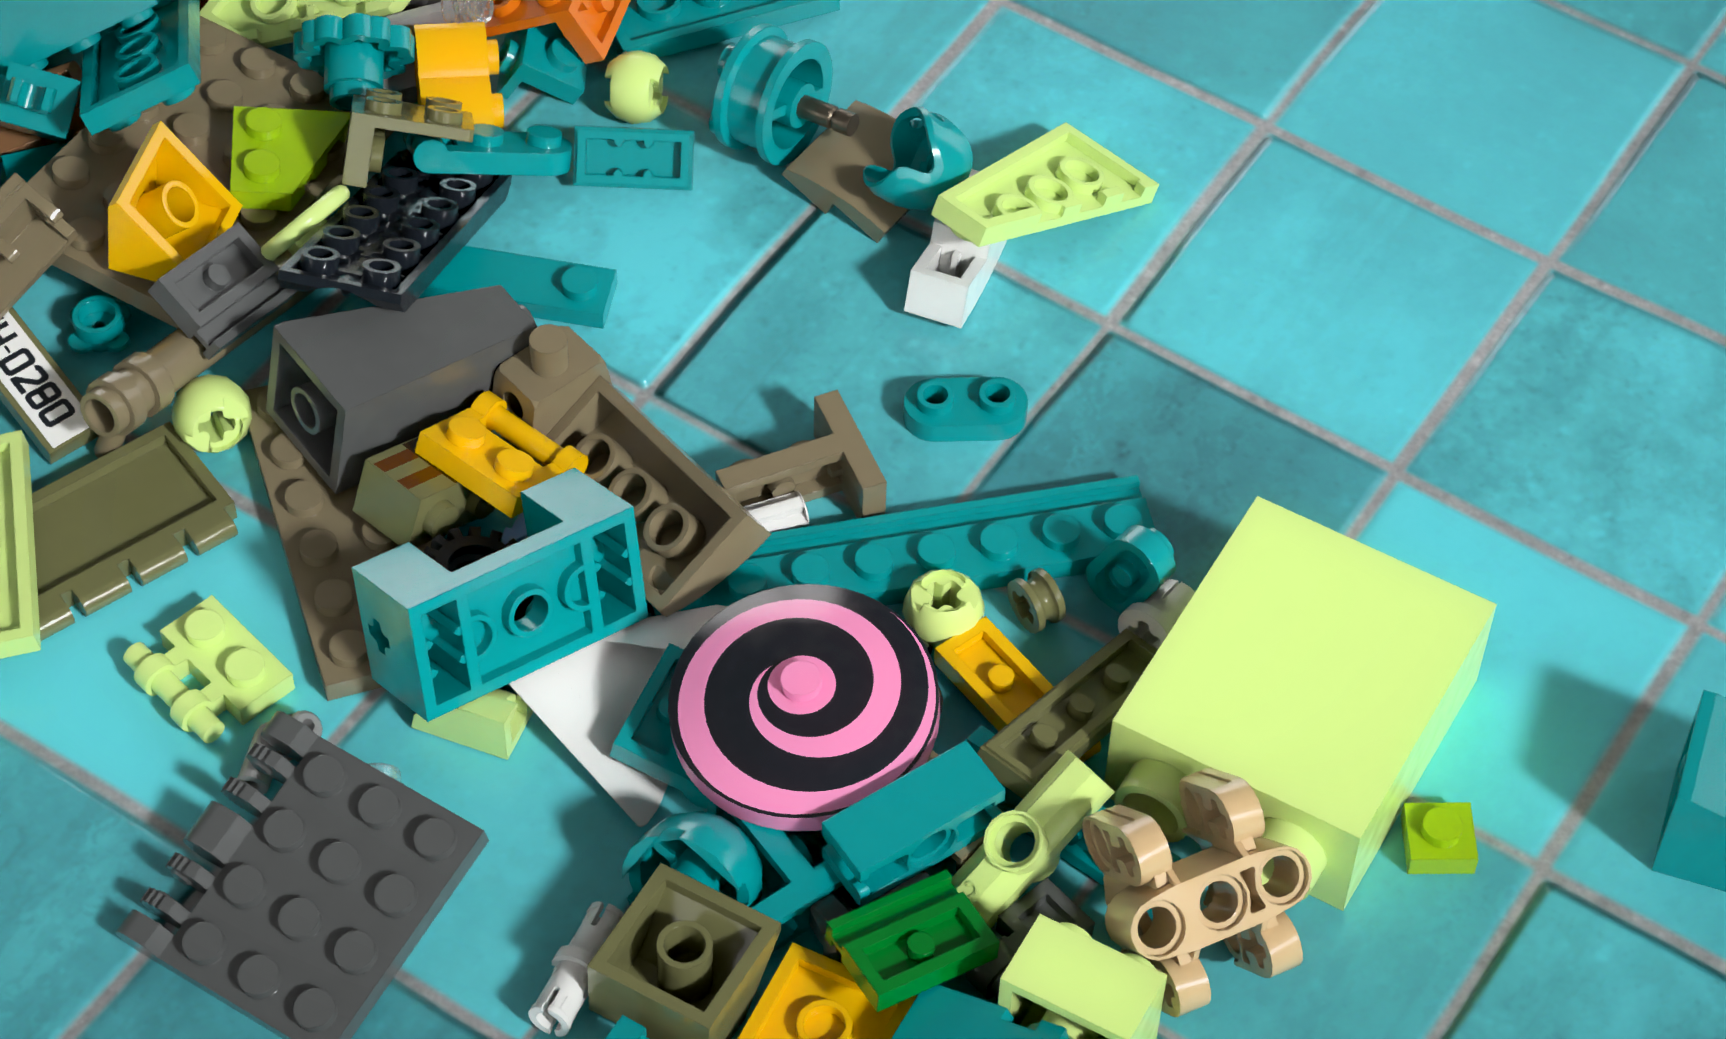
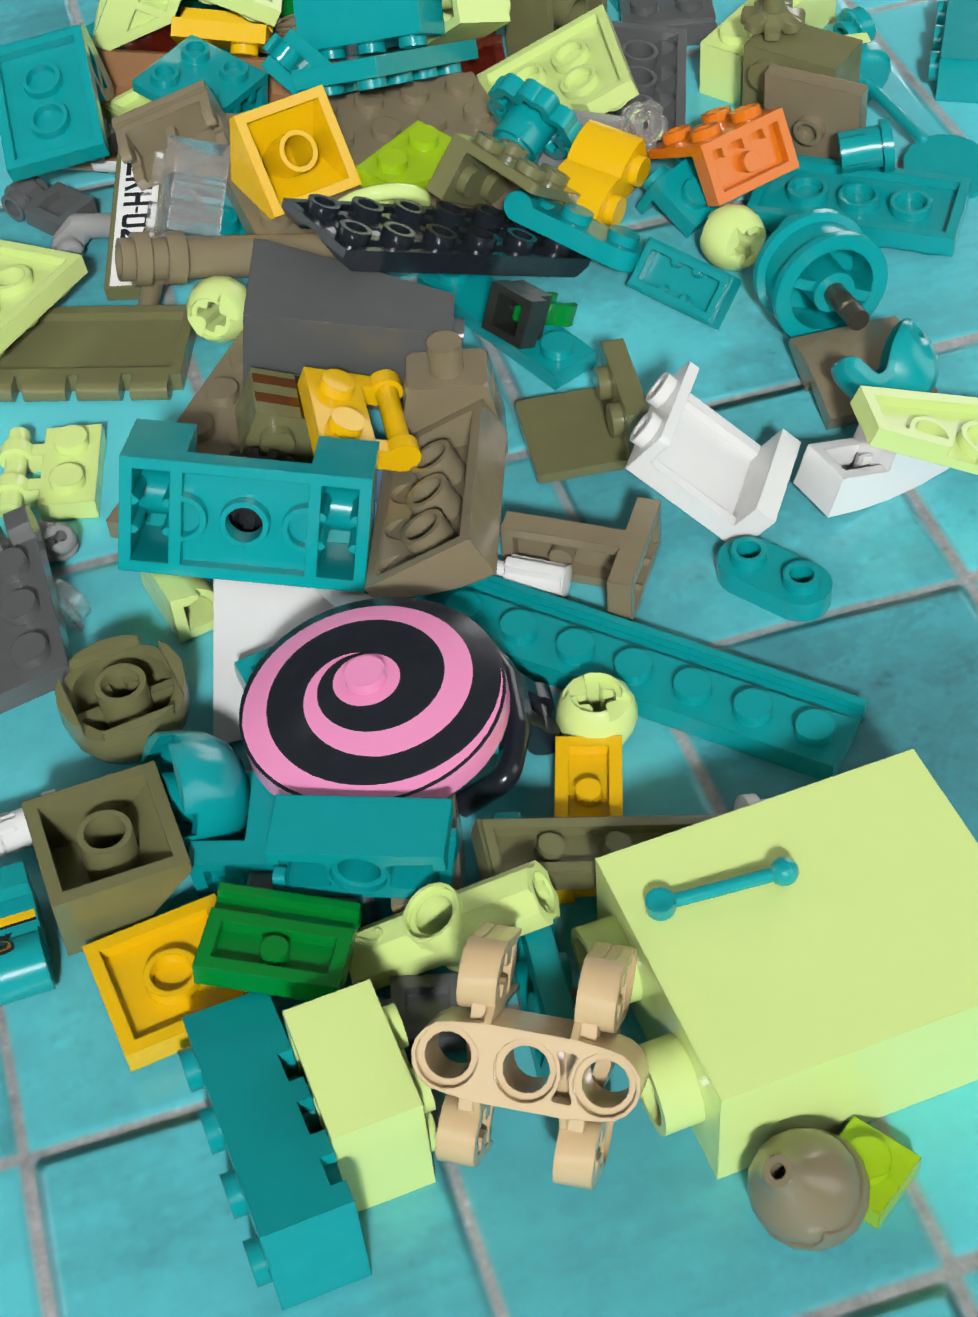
camera: 45 degrees right, 5 degrees down
(82, 309) = (192, 187): none -> clear brick
(221, 290) = (255, 211): dark grey plate -> none
(536, 268) = (521, 310): none -> pearl dark grey piece
(558, 829) = (122, 696): none -> olive cylinder
(687, 344) = (588, 427): none -> olive bracket
(846, 335) = (708, 462): none -> white panel
(1036, 600) = (681, 749): olive bush -> none
(1131, 567) = (775, 757): teal plate -> none
(1196, 722) = (662, 903): none -> teal hinge
(1422, 872) = (808, 1188): none -> dark tan helmet

